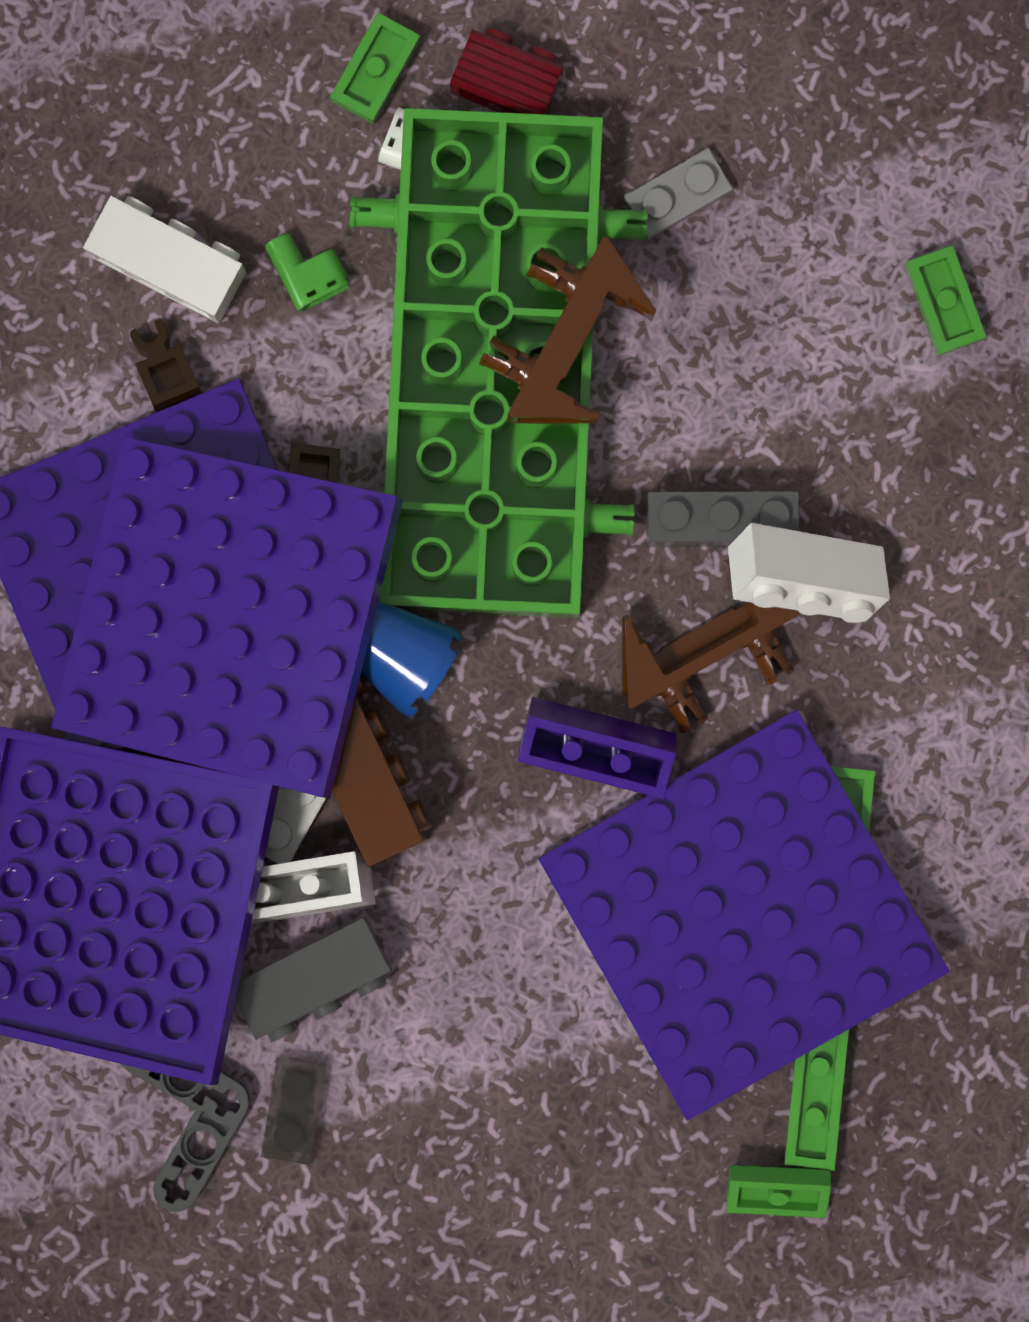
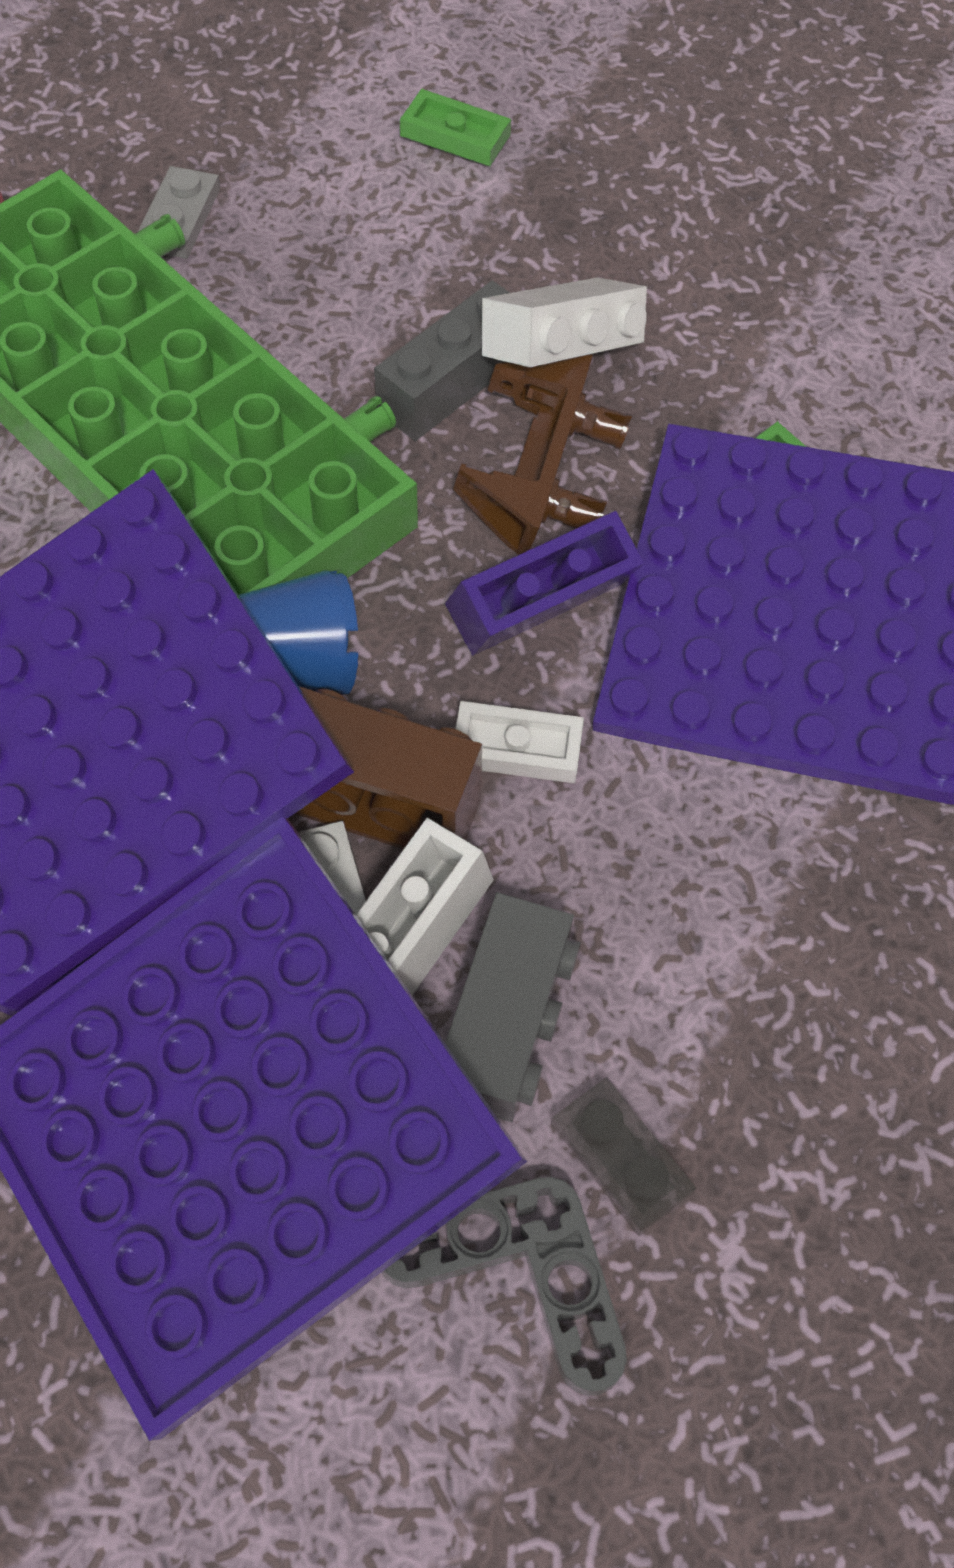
camera: 50 degrees left, 25 degrees down
(481, 828) = (523, 740): none -> white plate
(585, 292) = (176, 260): reddish brown hose -> none

